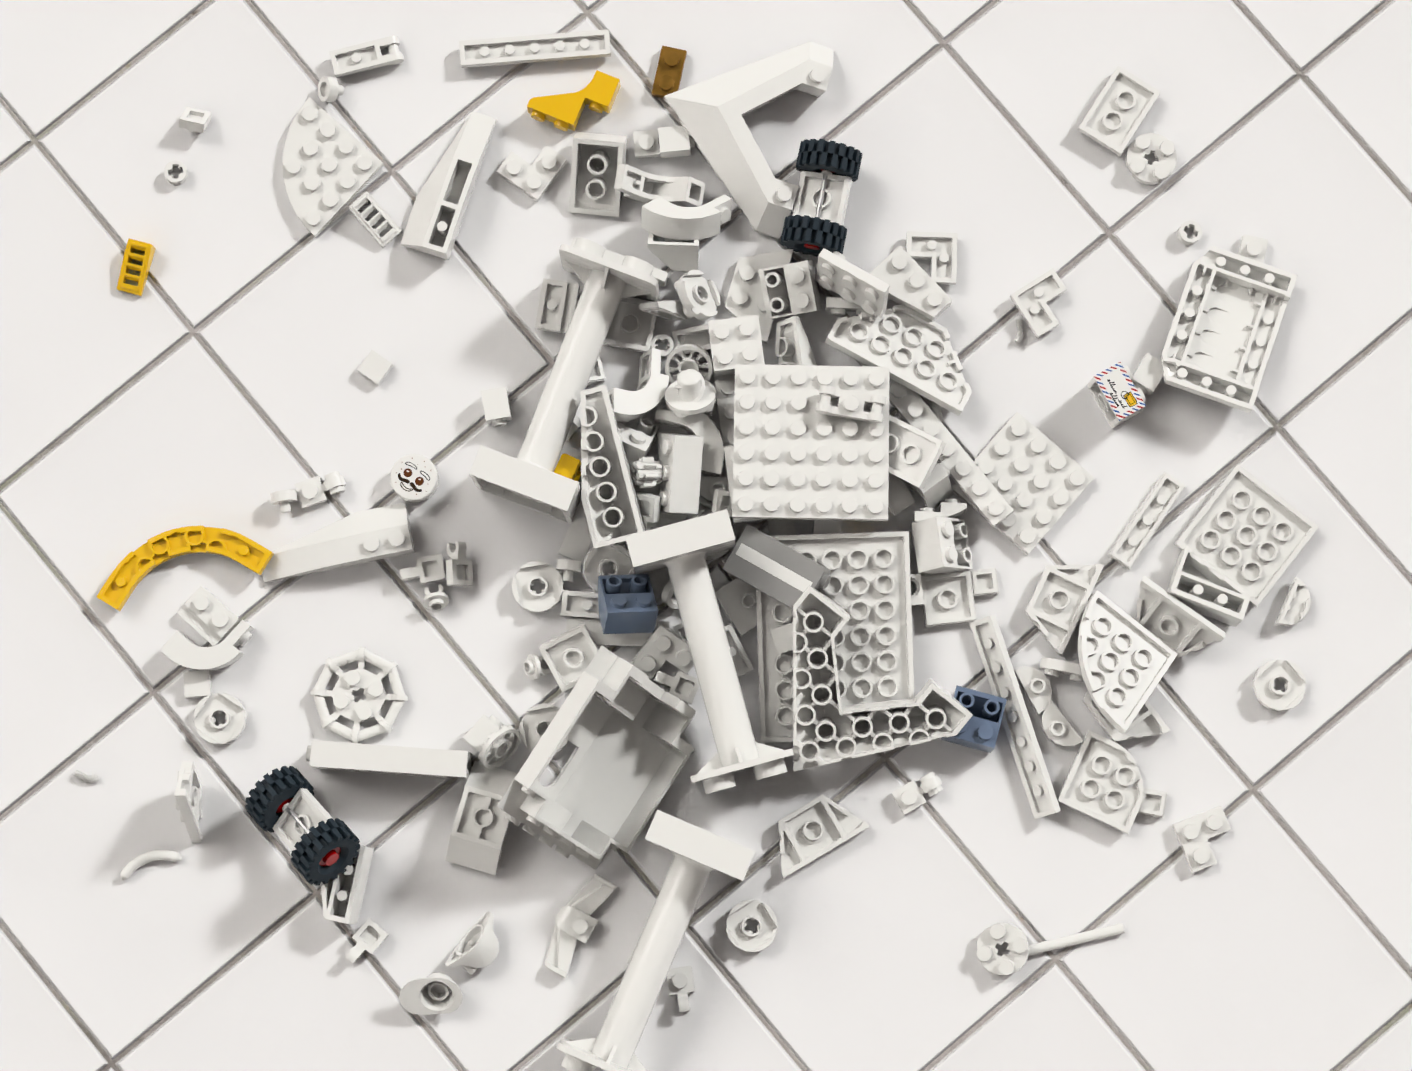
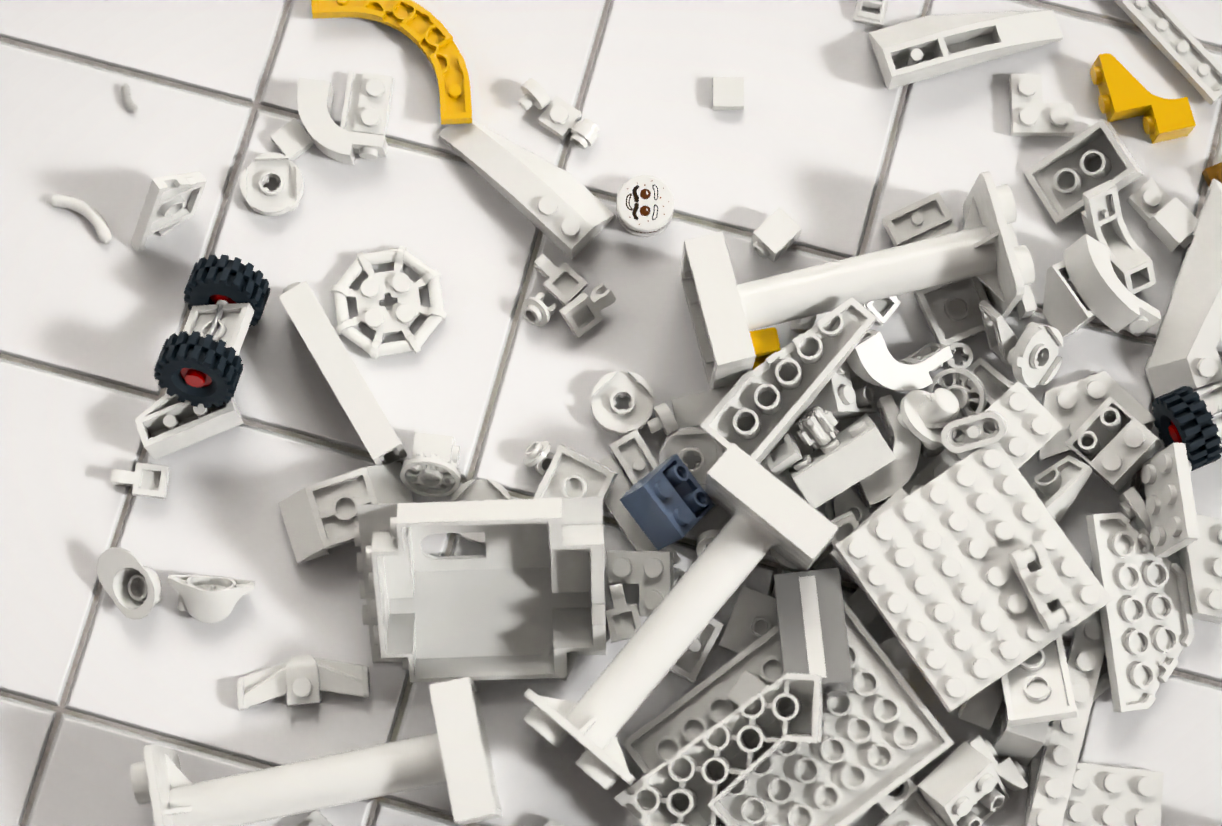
camera: 55 degrees right, 5 degrees down
(721, 374) = (974, 431): none -> white plate

